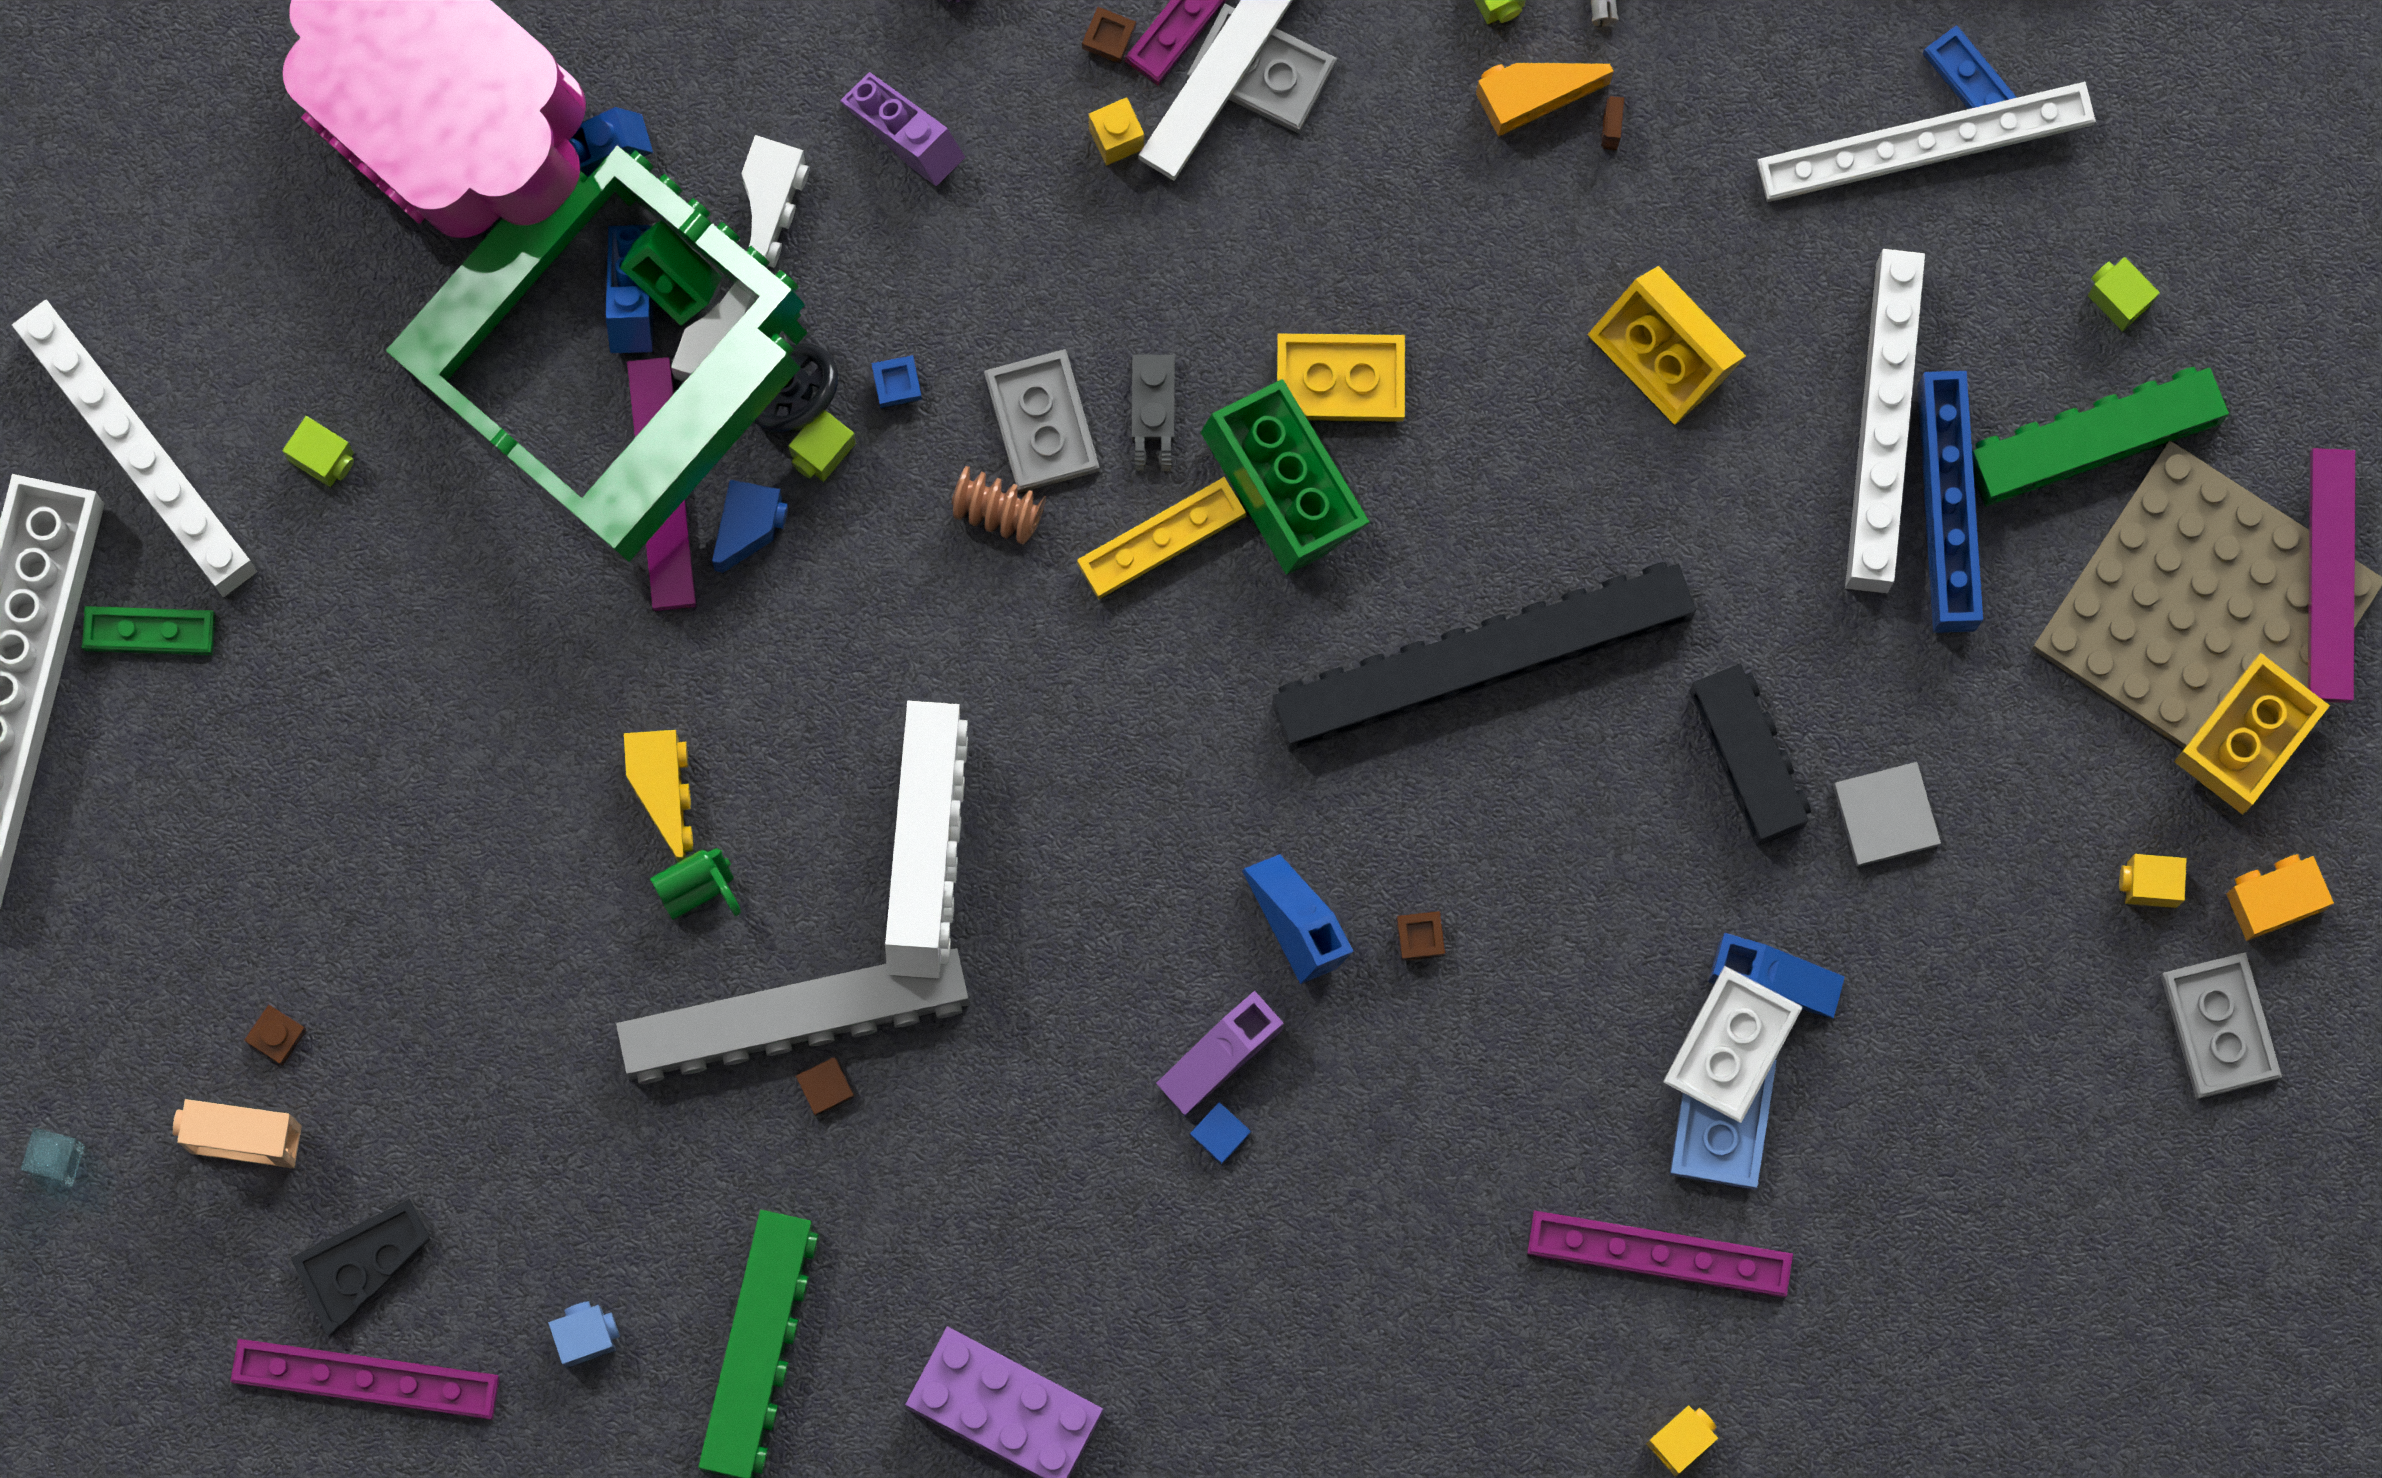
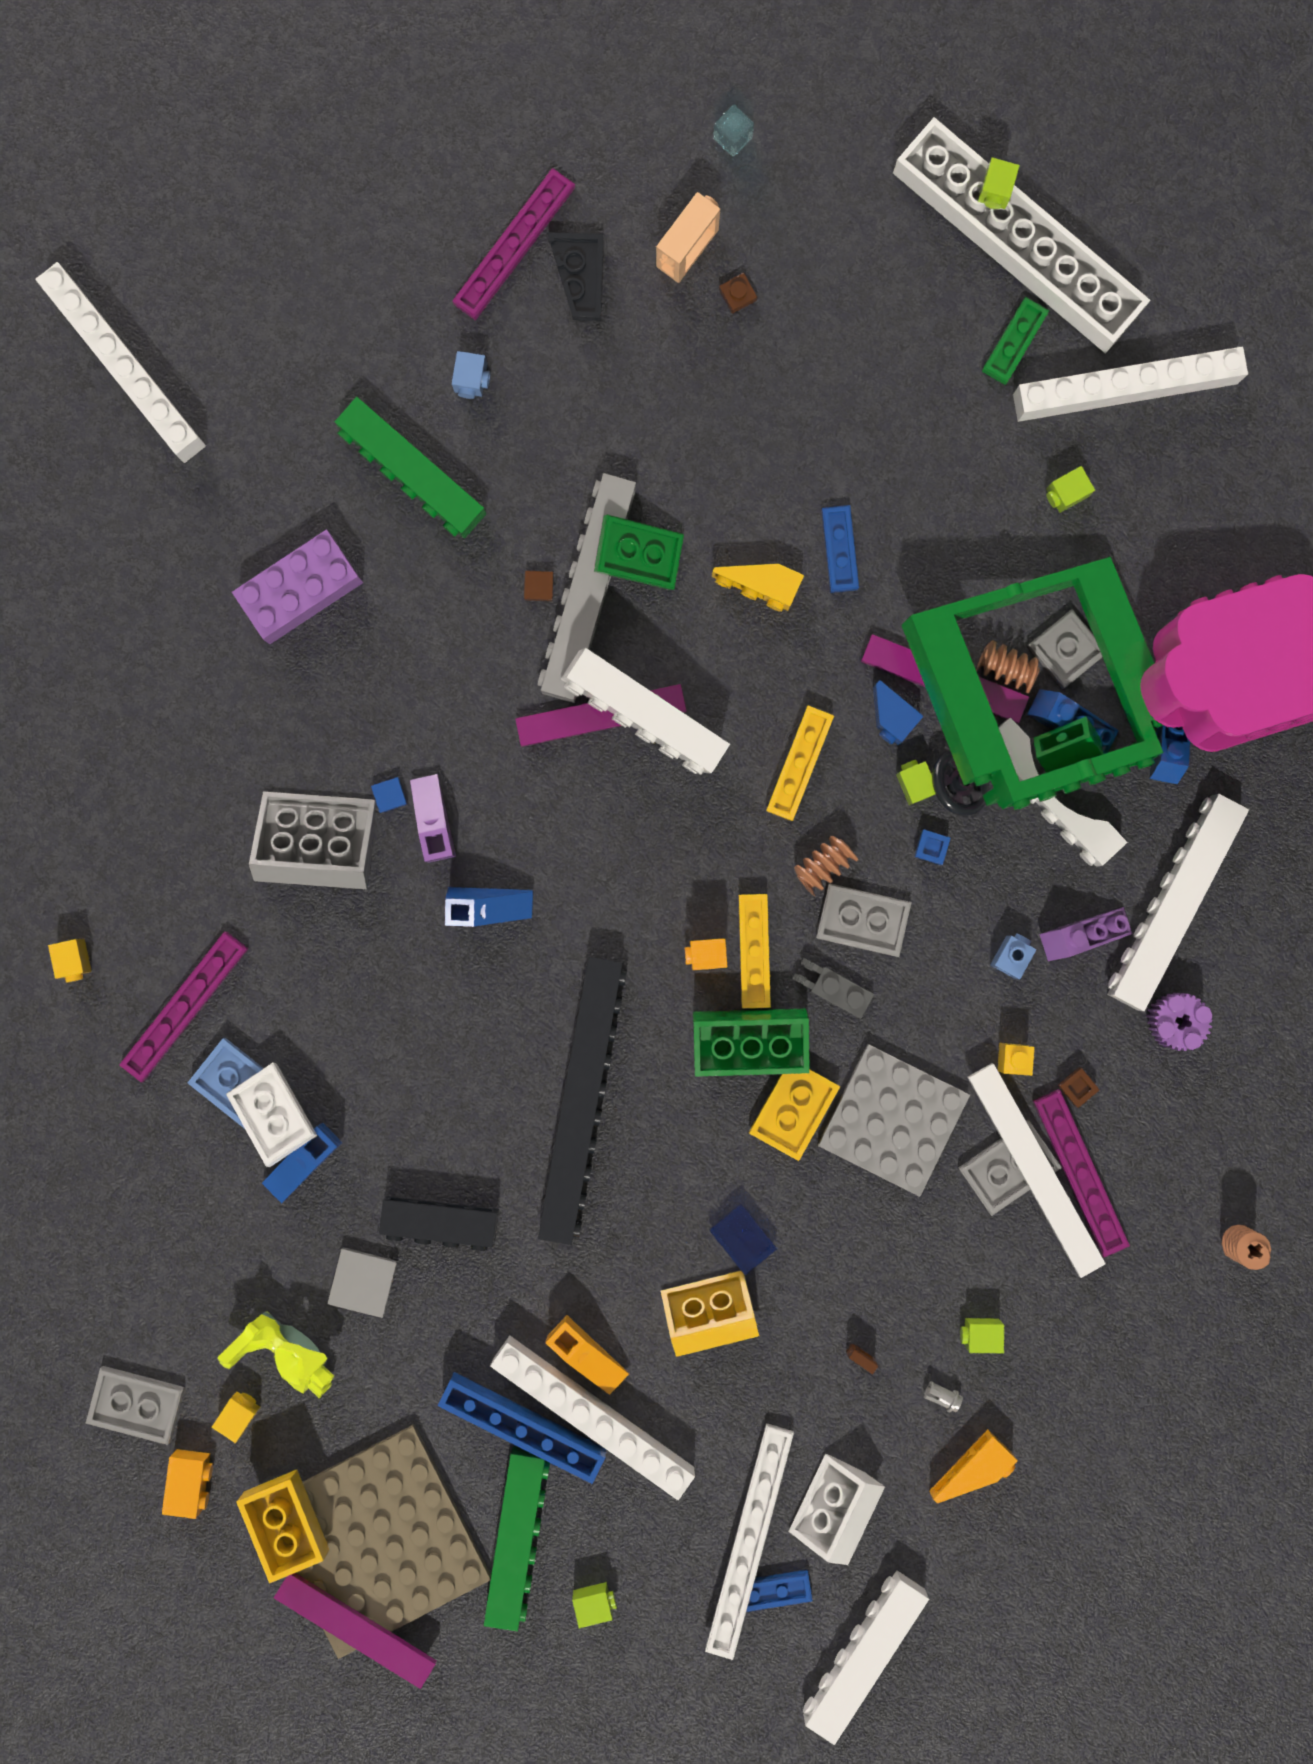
camera: 125 degrees right, 10 degrees up
(535, 348) = (1066, 649): none -> light grey tile
(557, 712) = (840, 549): none -> blue tile
(598, 408) = (1009, 665): none -> nougat piece
(695, 882) = (695, 571): green piece -> none
(709, 970) = (638, 552): none -> green tile
(797, 35) = (1177, 901): none -> white brick
(878, 610) = (800, 763): none -> yellow plate
(974, 929) = (580, 719): none -> magenta tile
(983, 203) = (1013, 956): none -> medium blue brick
(1200, 591) = (706, 954): none -> light orange brick
(1282, 246) = (893, 1120): none -> light grey plate
(1336, 1198) = (313, 840): none -> light grey slope
(1420, 936) = (438, 971): reddish brown plate -> none
(1532, 90) = (908, 1321): light orange slope -> none
(1546, 353) = (743, 1239): none -> clear blue plate
(1811, 472) = (585, 1355): none -> light orange slope
(1823, 55) = (836, 1510): none -> white slope
(2029, 850) = (294, 1356): none -> neon yellow hips

